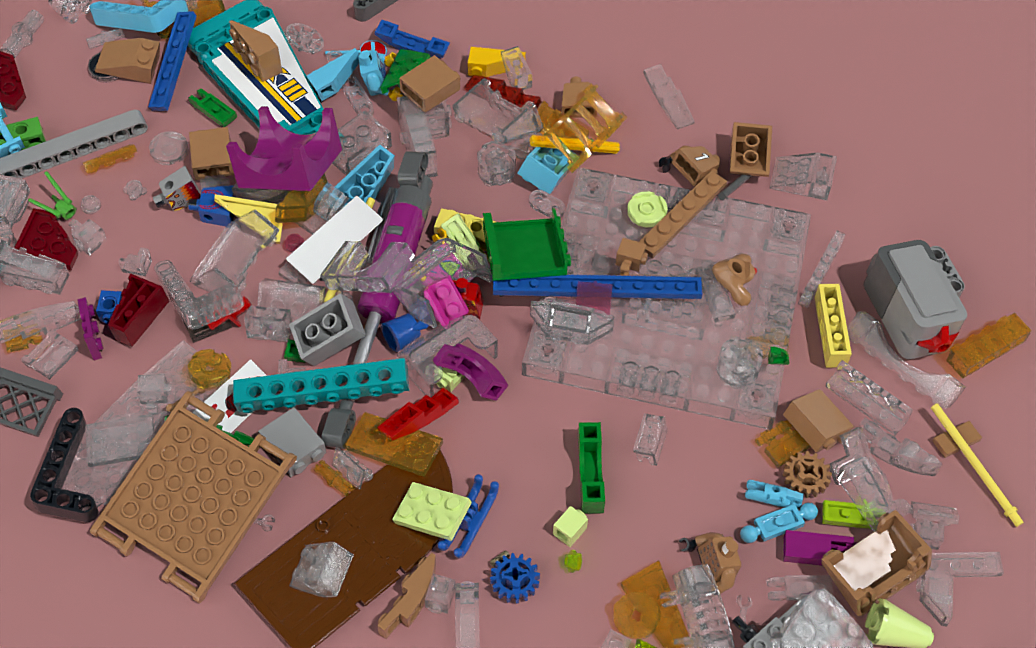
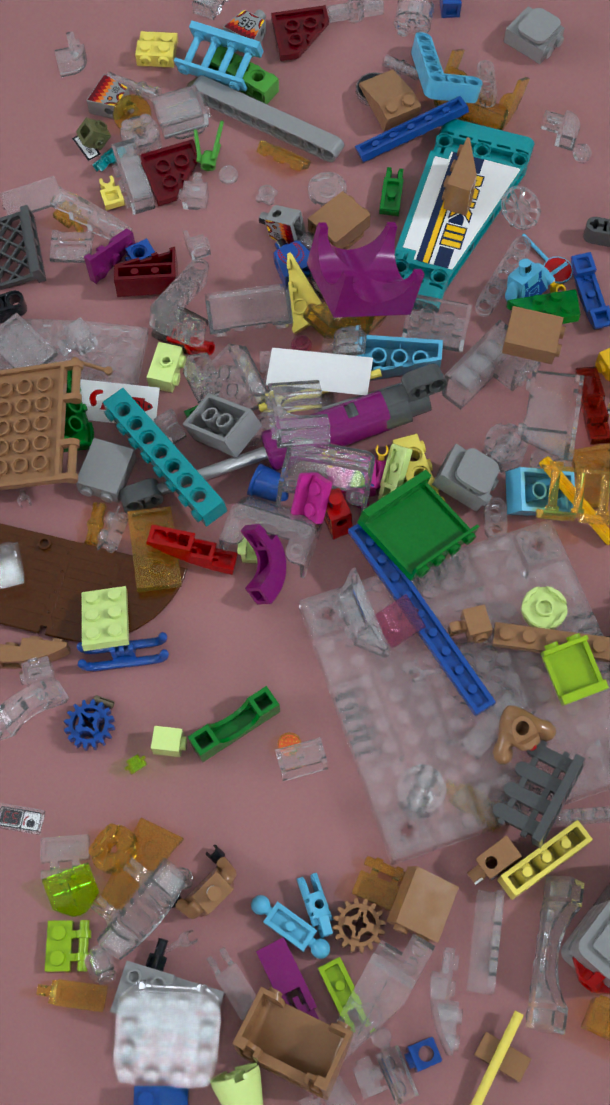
camera: 60 degrees right, 10 degrees up
(29, 297) = (111, 194): none -> light yellow plate
(209, 378) = (124, 374): clear yellow plate -> none
(232, 342) = (166, 367): none -> yellowish green brick
(332, 76) = (494, 256): medium azure slope -> none
(503, 196) = (467, 476): none -> light grey brick
(627, 443) = (288, 739): none -> tile
(710, 217) = (573, 669): none -> lime panel
(778, 356) = (457, 826): green tile -> none
(802, 292) = (539, 804): none -> dark grey fence
(814, 353) = (503, 852): none -> medium nougat torso
(928, 493) = (413, 1059): none -> blue bracket

